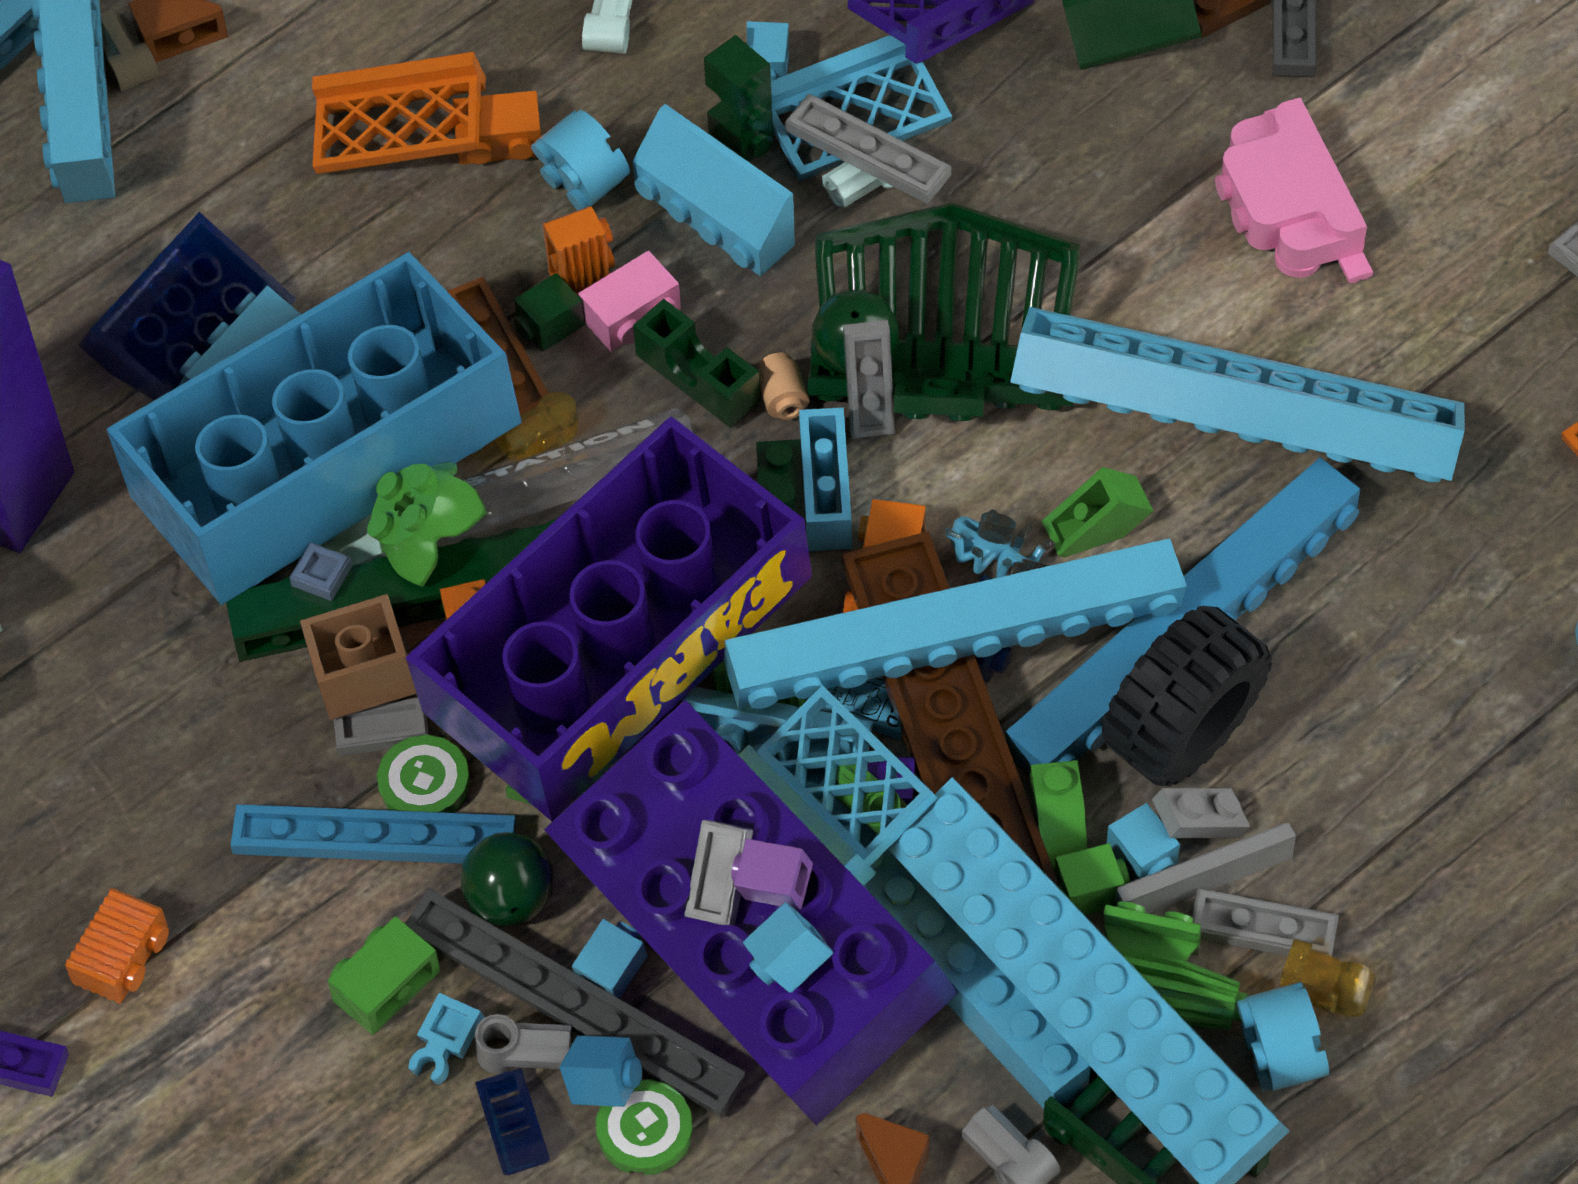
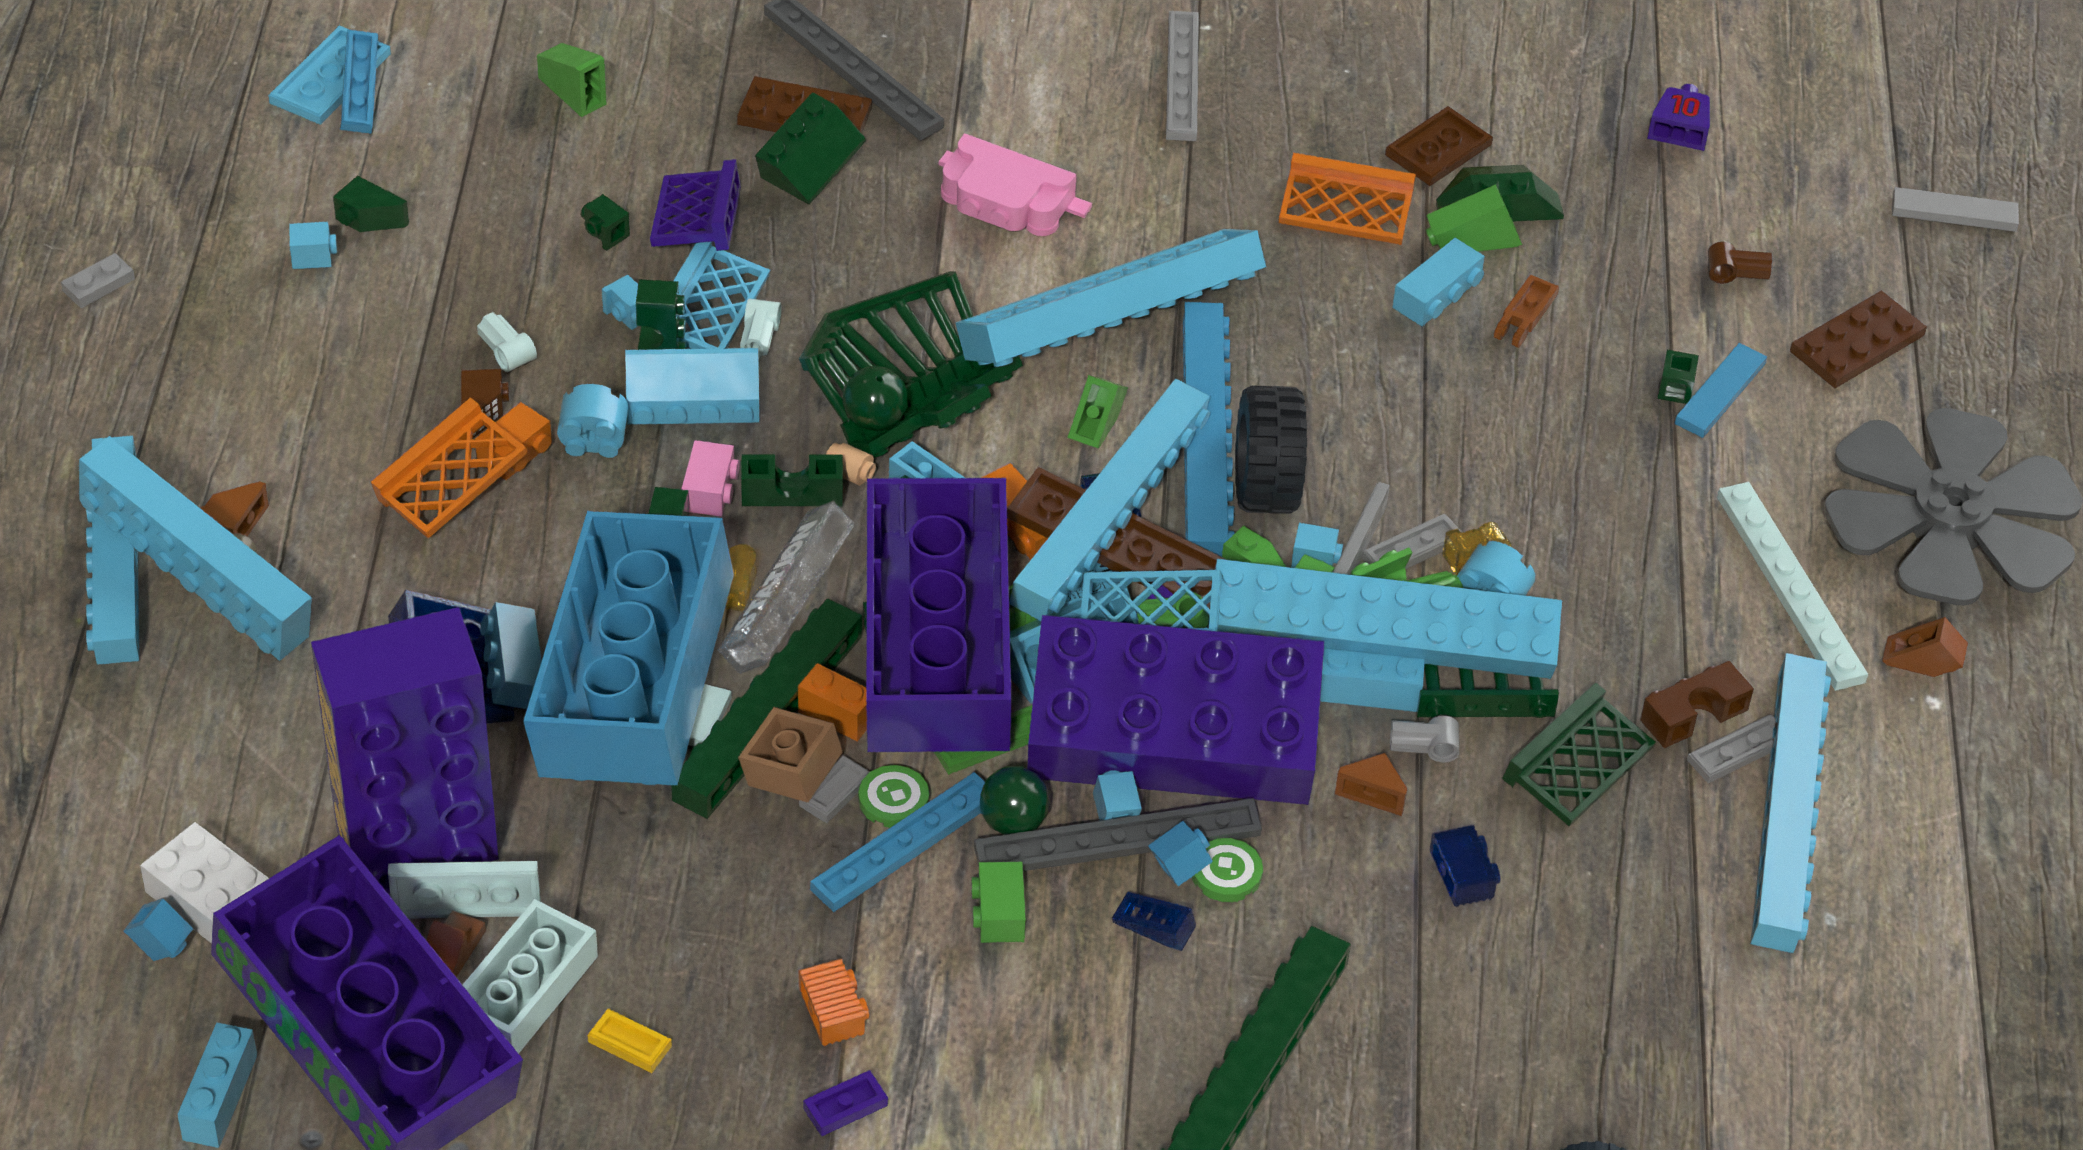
camera: 50 degrees left, 10 degrees down
(321, 571) = (717, 725): sand blue tile -> none
(419, 509) = (763, 667): bright green brick -> none
(446, 1031) = (1070, 902): medium azure plate -> none
(519, 60) = (487, 390): none -> reddish brown slope
(527, 1046) = (1114, 879): light grey piece -> none
(579, 248) = (653, 465): orange brick -> none
(712, 889) = (1164, 681): light grey tile -> none
(772, 873) = (1204, 653): medium lavender brick -> none
(786, 948) = (1247, 688): medium azure brick -> none
(868, 148) = (756, 308): light grey tile -> none
(869, 379) = (909, 410): light grey tile -> none
(992, 541) = (1065, 455): animal -> none
(1200, 813) = (1327, 510): light grey plate -> none

